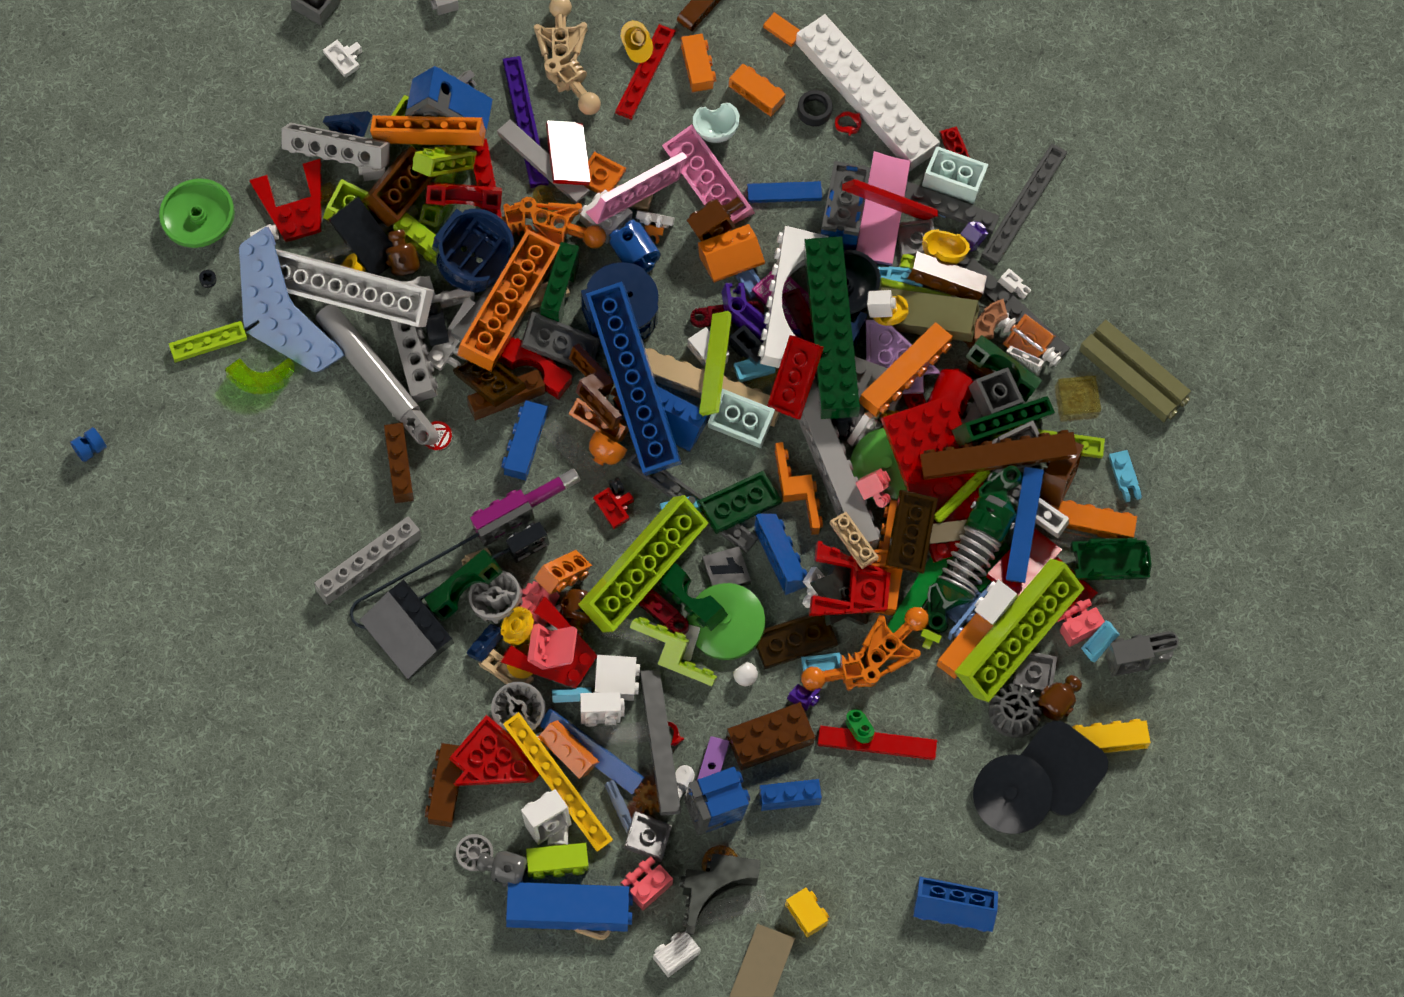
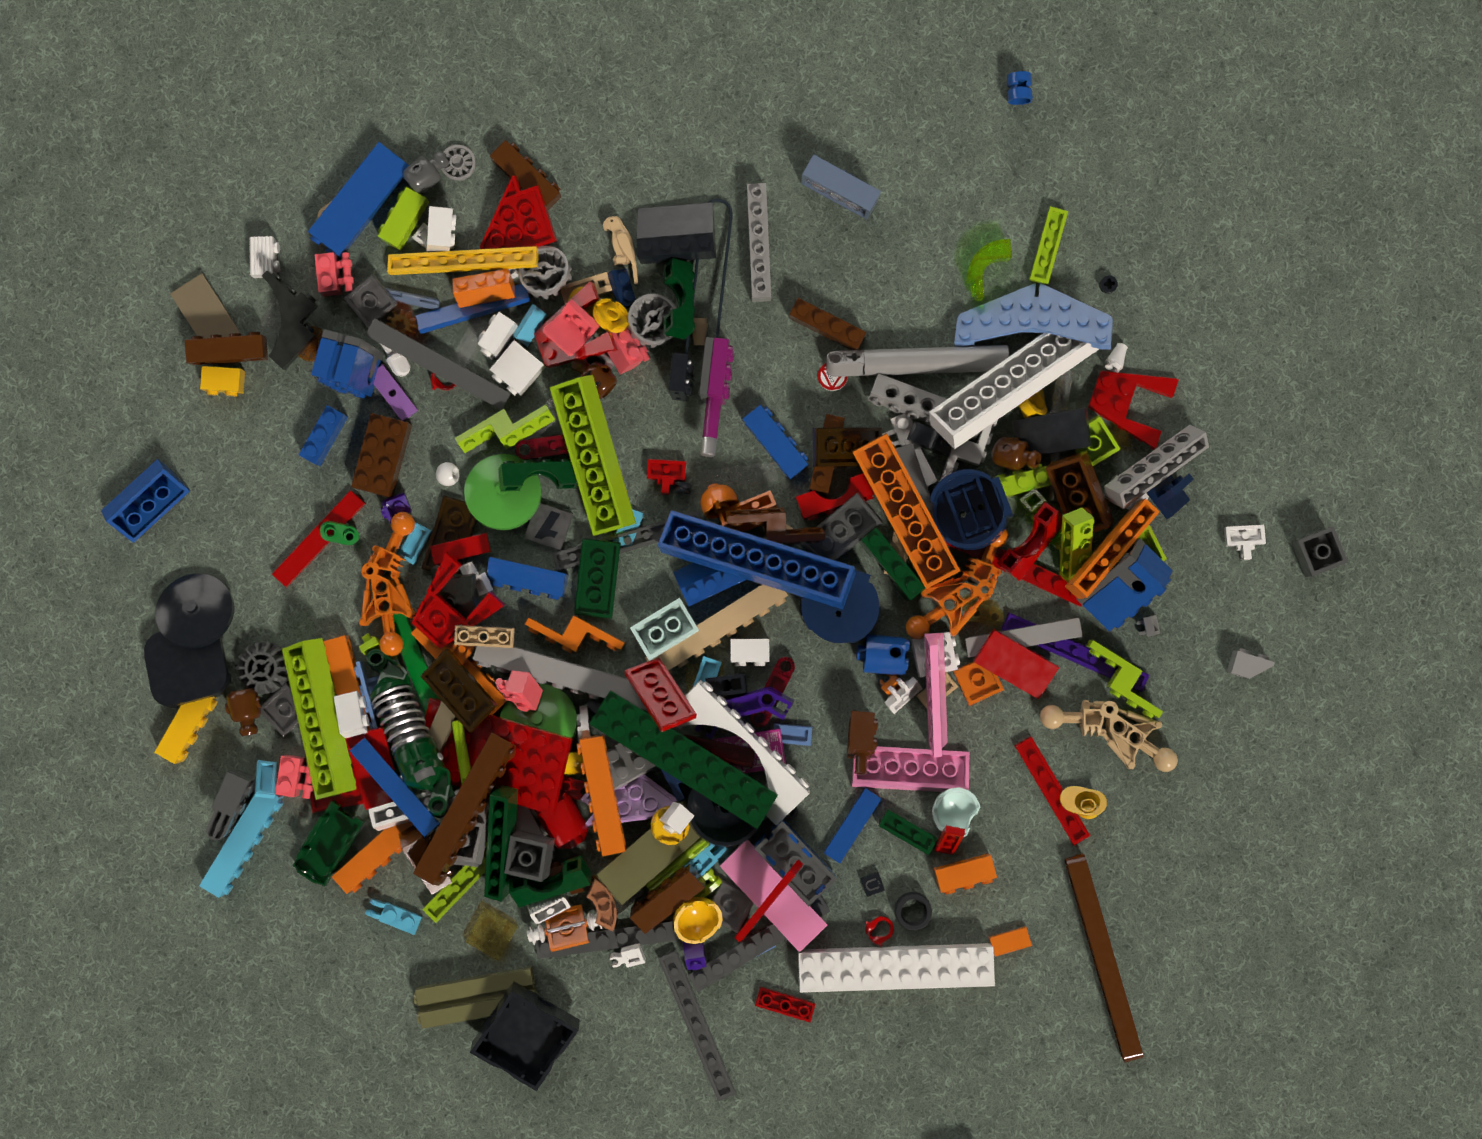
camera: 130 degrees right, 20 degrees up
(197, 213) = (1175, 312): bright green dish -> none
(274, 524) = (840, 187): none -> sand blue brick
(448, 667) = (622, 244): none -> tan animal
(521, 71) = (1123, 679): none -> lime bracket
(563, 572) = (631, 378): orange brick -> none
(692, 635) = (509, 453): white sticker -> none
(698, 62) = (1027, 841): orange brick -> none
(715, 363) = (726, 642): lime tile -> none
(731, 253) = (823, 734): orange slope -> none
(741, 110) = (949, 840): none -> red tile
(758, 149) = (908, 832): none -> dark green plate
(778, 921) = (226, 349): none -> reddish brown brick
(798, 621) = (461, 548): none -> red tile
(817, 150) = (872, 884): none -> black tile
(954, 175) = (761, 983): light aqua slope -> none
(1133, 311) = (525, 1035): none -> black tile
(1187, 626) = (239, 845): none -> medium azure brick

